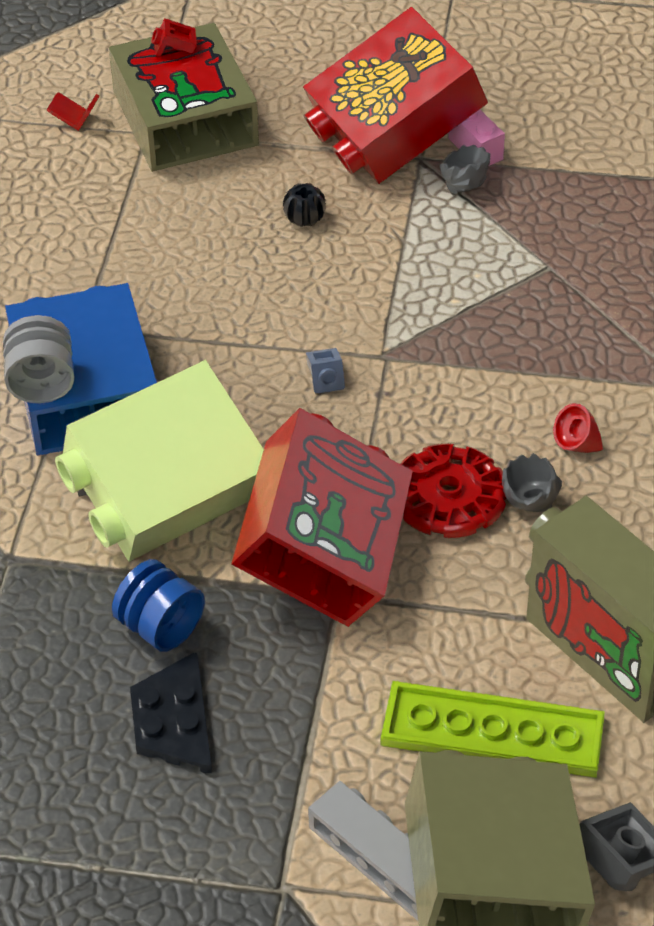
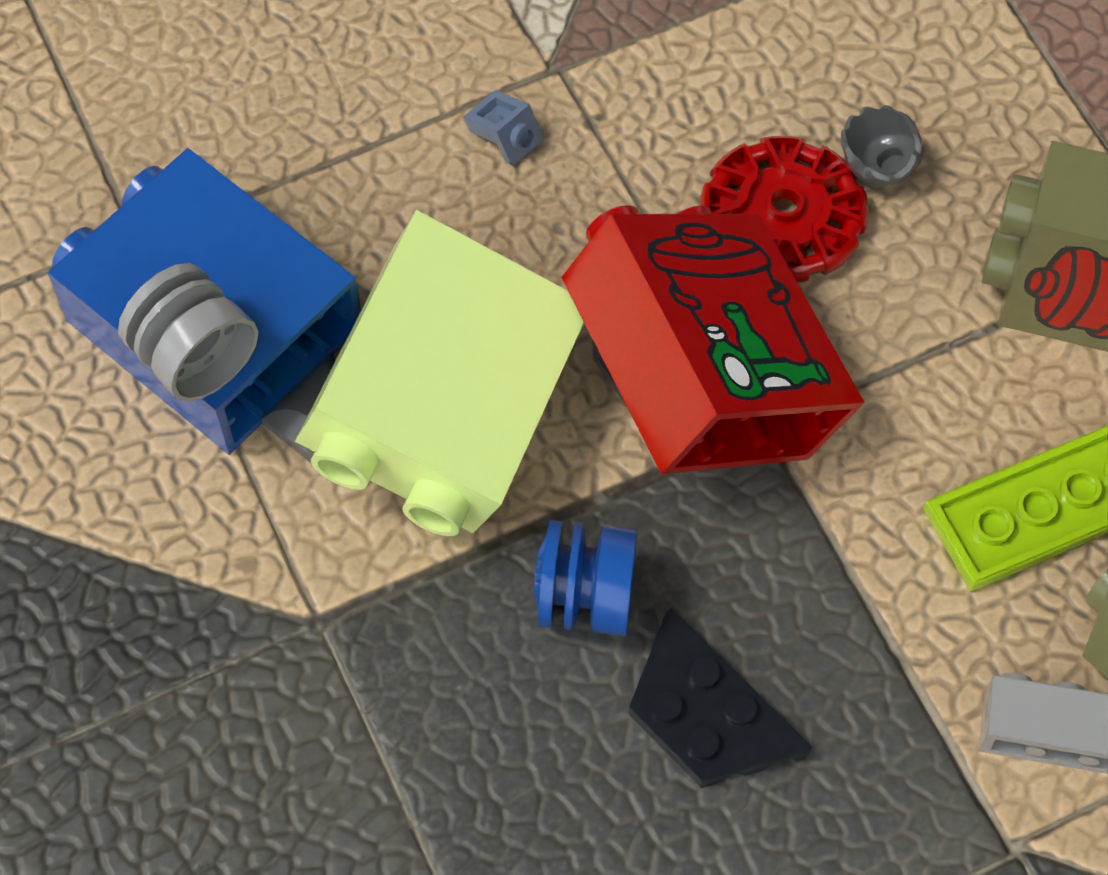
camera: 35 degrees left, 15 degrees up
(577, 430) = (868, 44): red piece -> none

